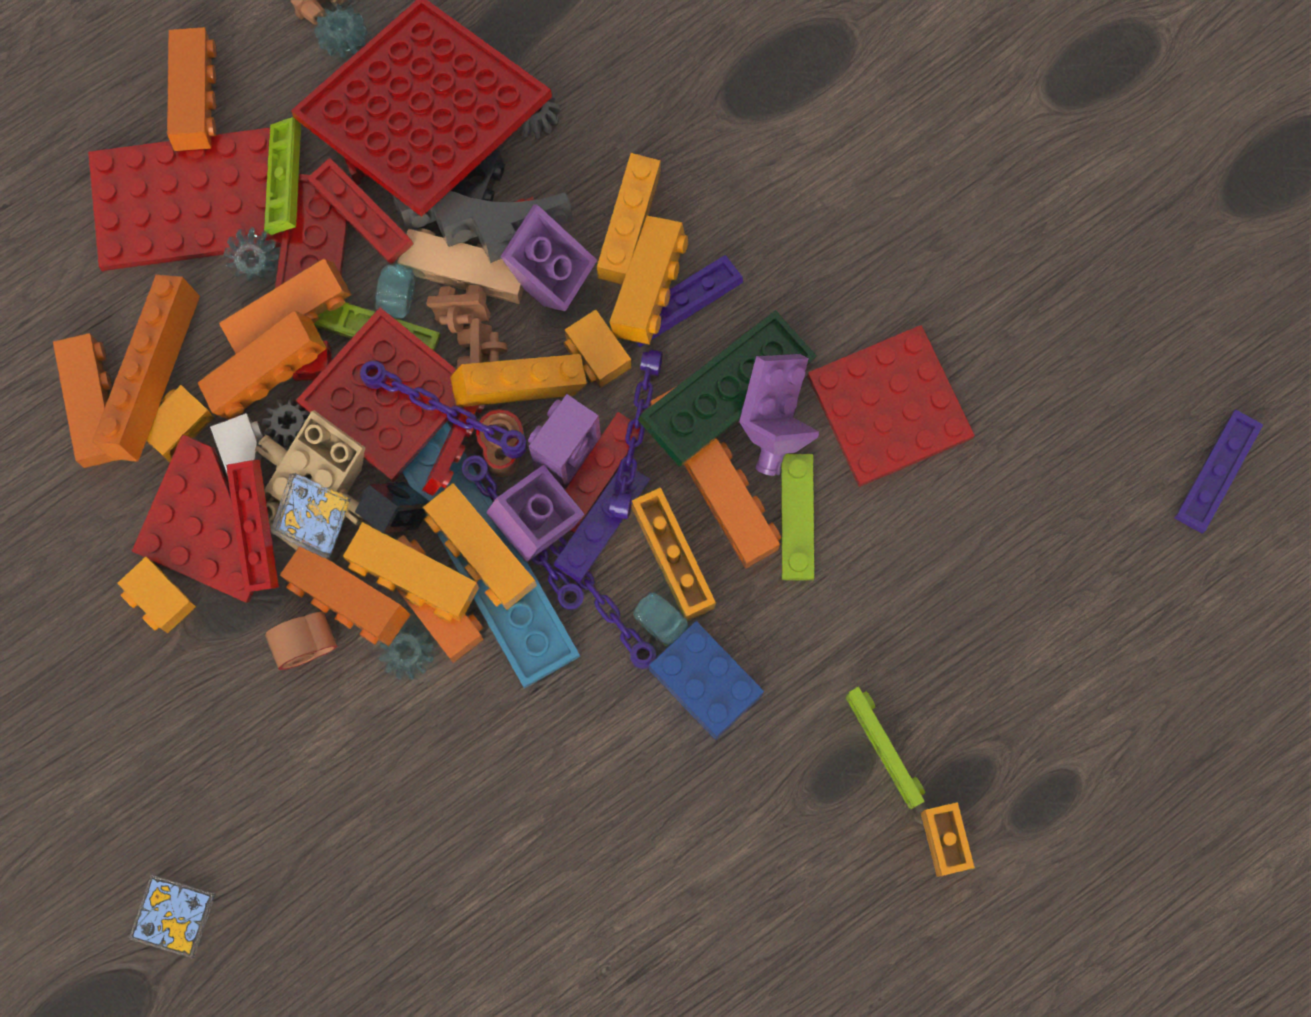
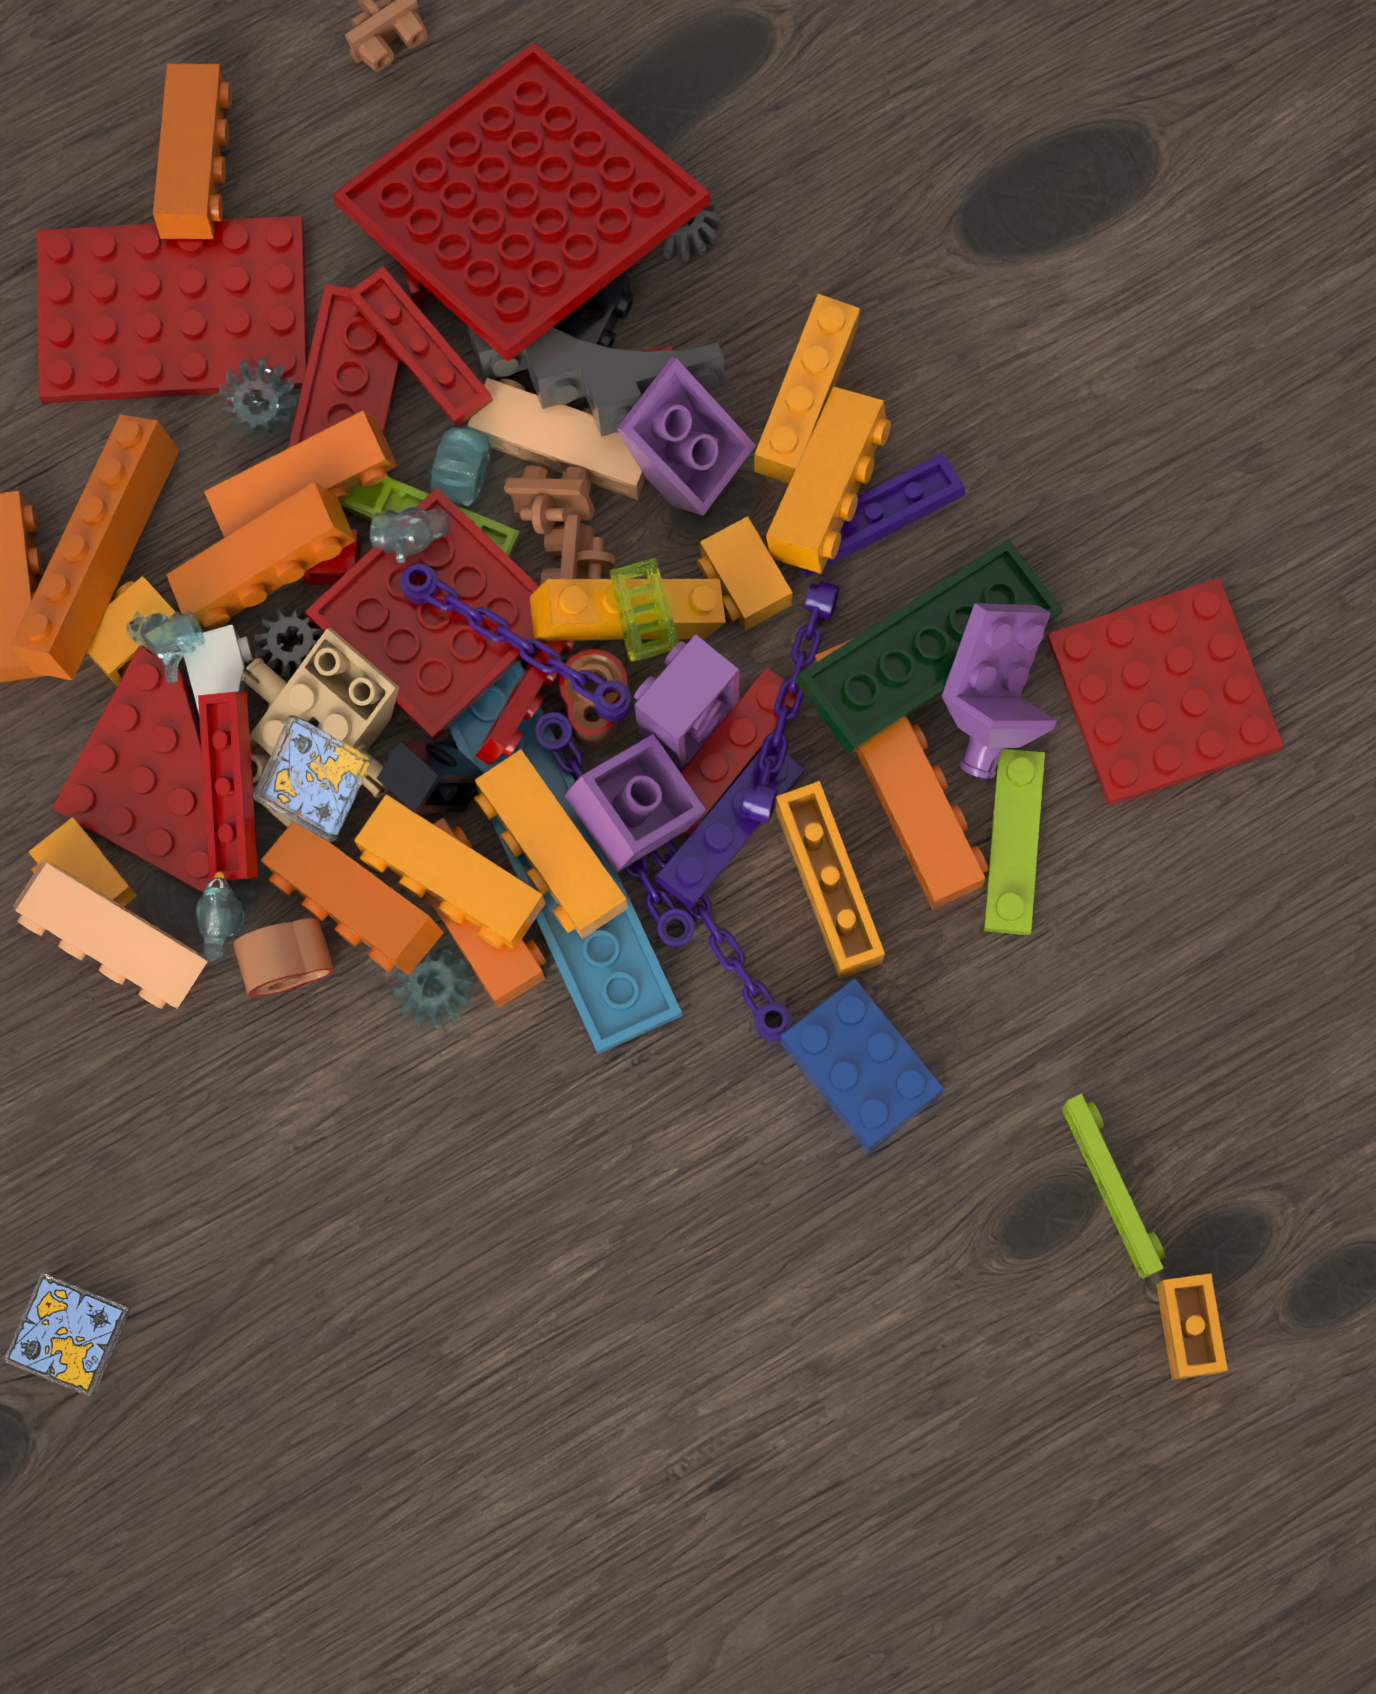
camera: 10 degrees right, 0 degrees up
(177, 635) = (110, 934): none -> light nougat brick
(201, 426) = (167, 637): none -> clear light blue animal
(253, 616) = (218, 916): none -> clear light blue animal
(282, 176) = (313, 287): lime plate -> none
(329, 31) = (422, 71): clear light blue gear -> none
(362, 338) = (407, 531): none -> clear light blue animal
(540, 375) = (627, 614): none -> clear neon green slope
(660, 618) = (802, 971): clear light blue gear -> none

